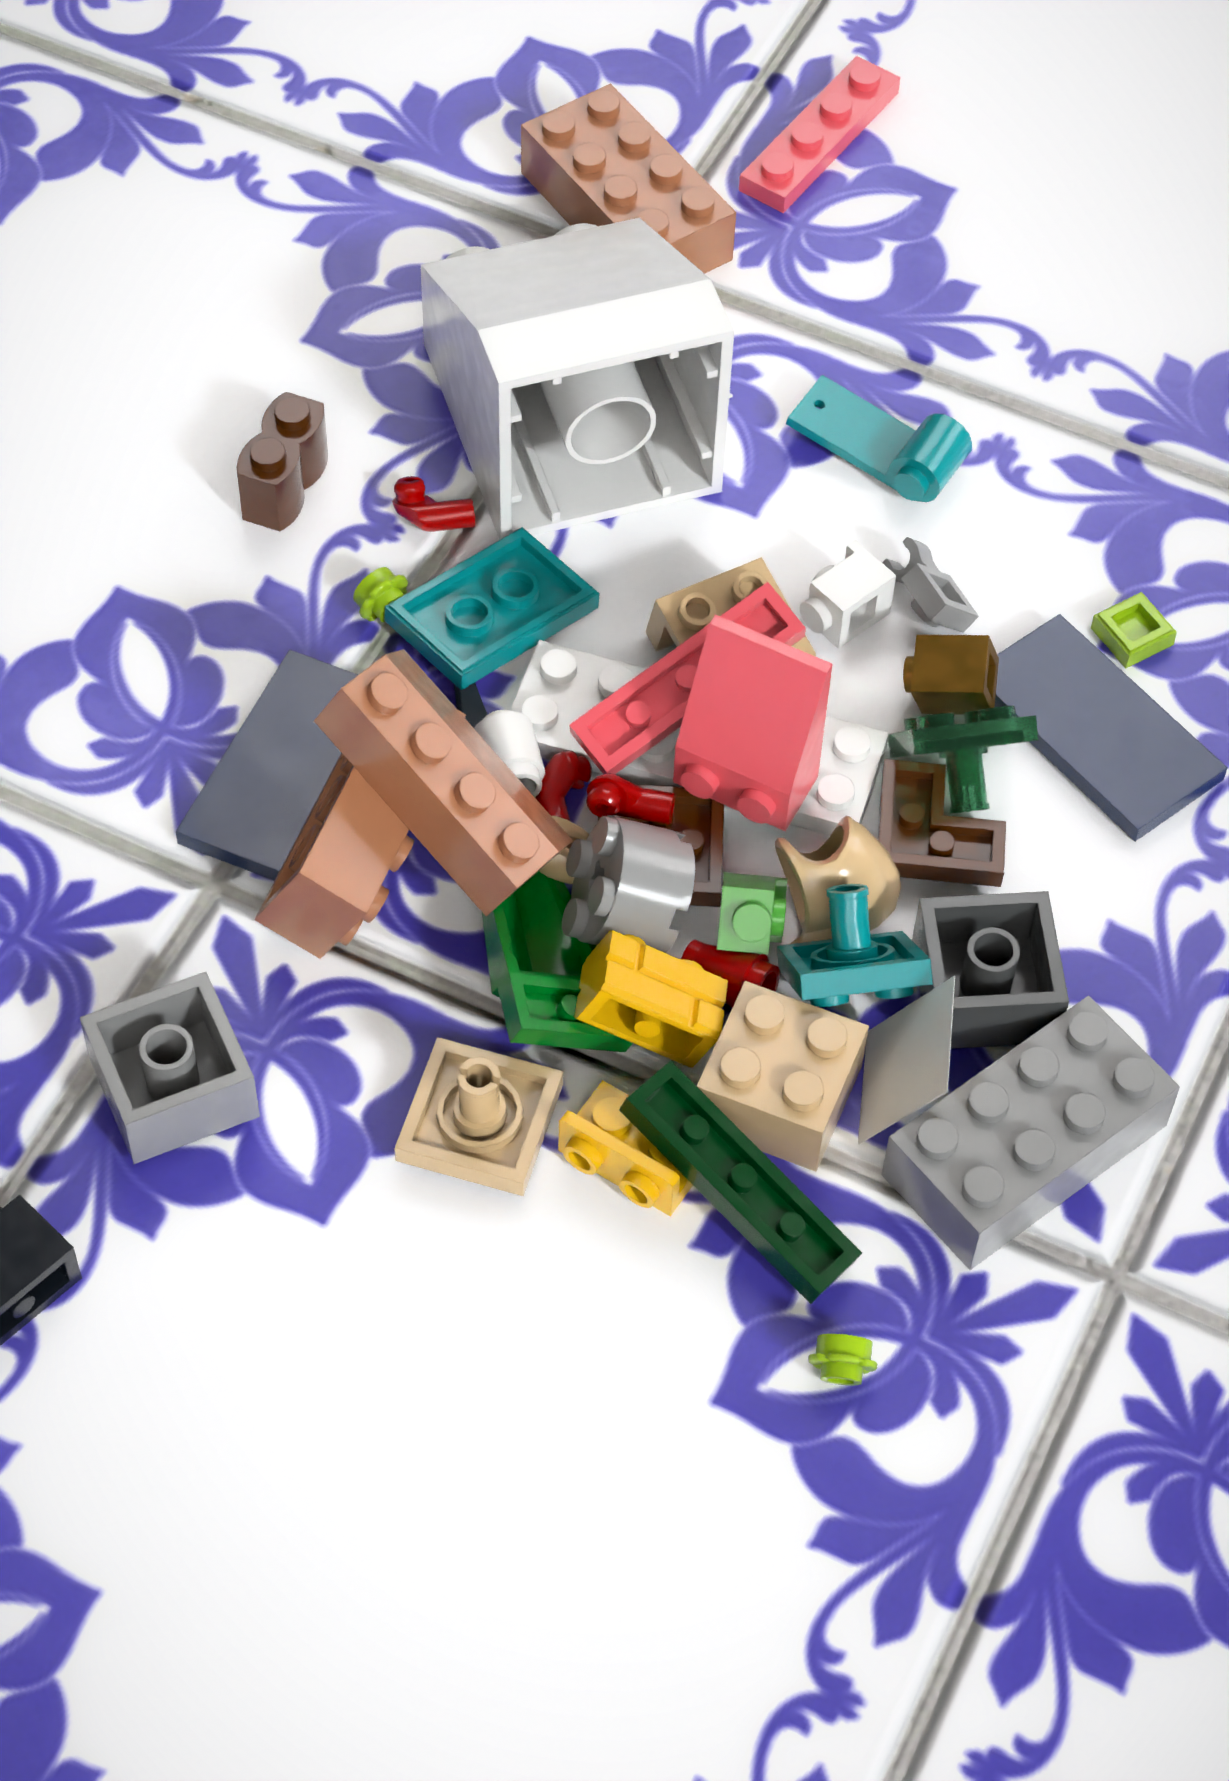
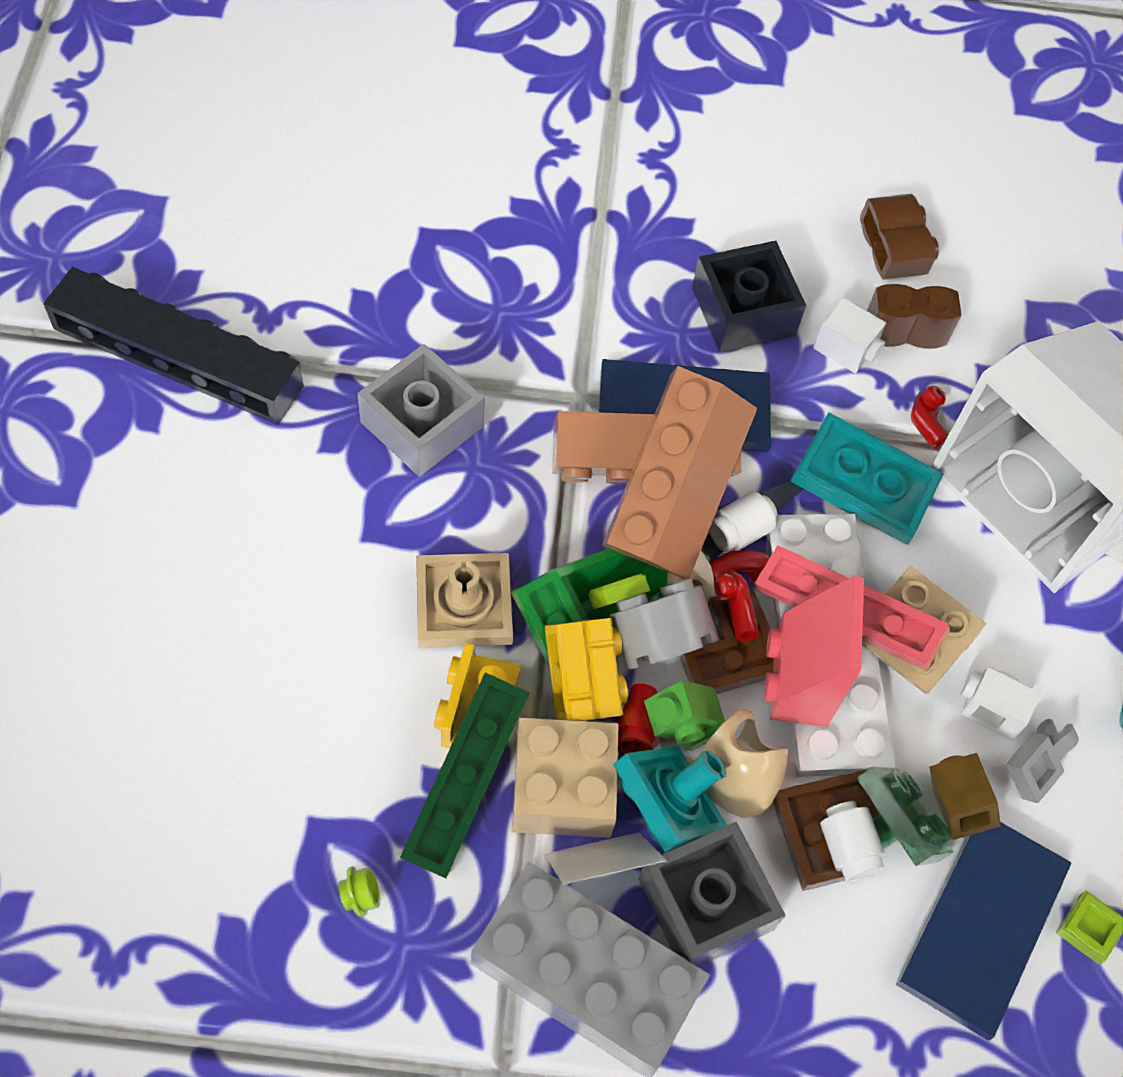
camera: 65 degrees right, 5 degrees up
(145, 426) = (898, 236): none -> reddish brown brick
(167, 622) = (748, 296): none -> black brick
(278, 539) = (850, 336): none -> white brick
(377, 591) = (842, 405): lime plate -> none
(559, 922) = (618, 591): none -> lime tile
(976, 798) = (853, 841): none -> white brick

